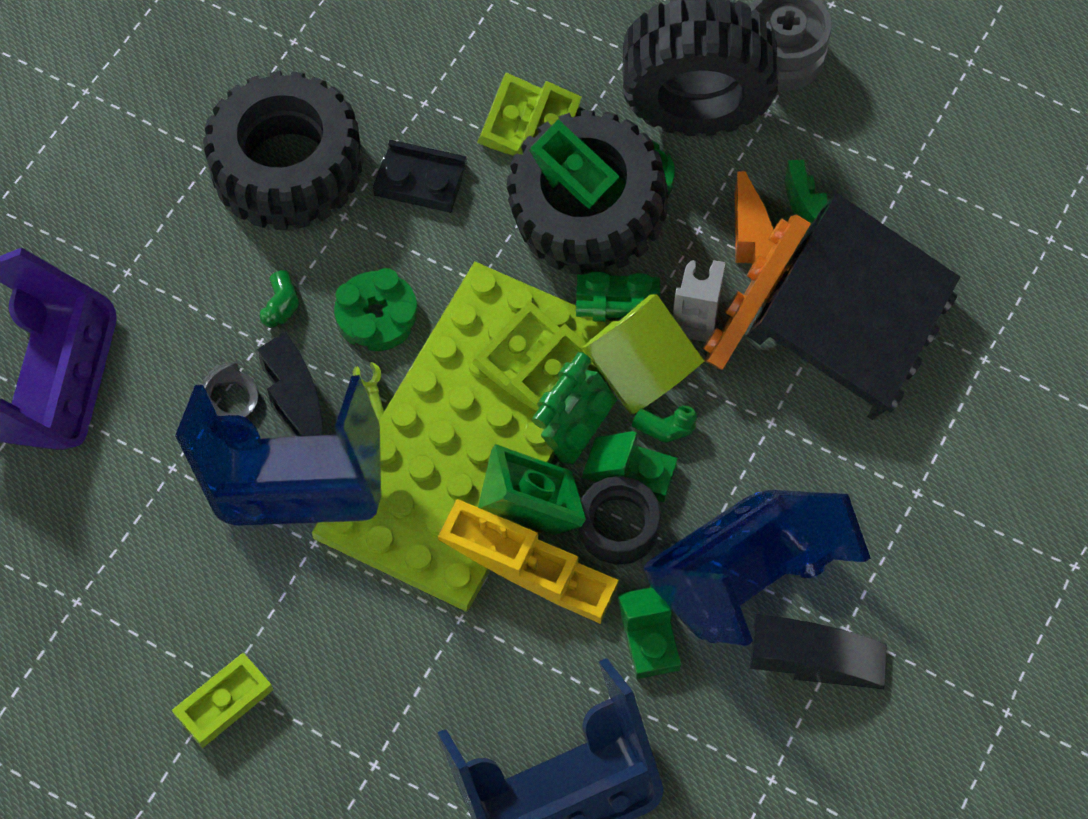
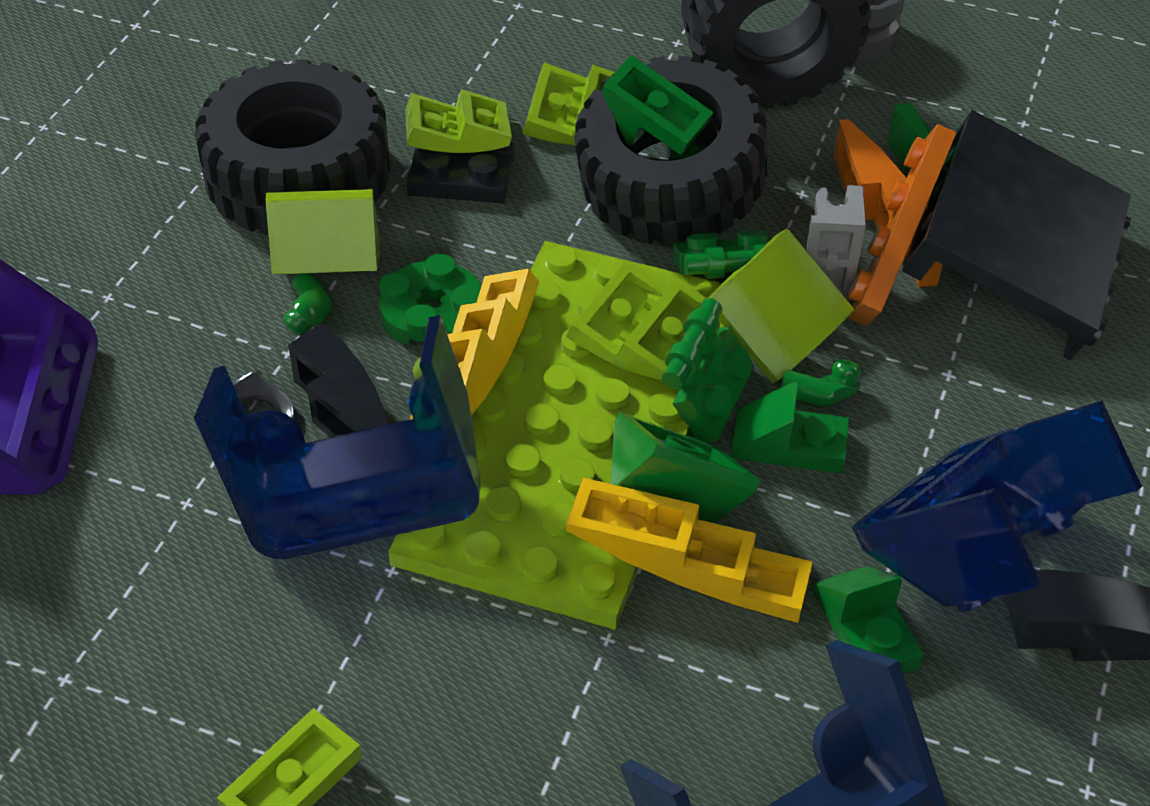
camera: 10 degrees left, 15 degrees down
(296, 247) = (322, 231): none -> lime slope
(407, 358) = (490, 329): none -> yellow slope
(422, 135) = (469, 127): none -> lime slope
(620, 489) = (801, 460): black tyre -> none

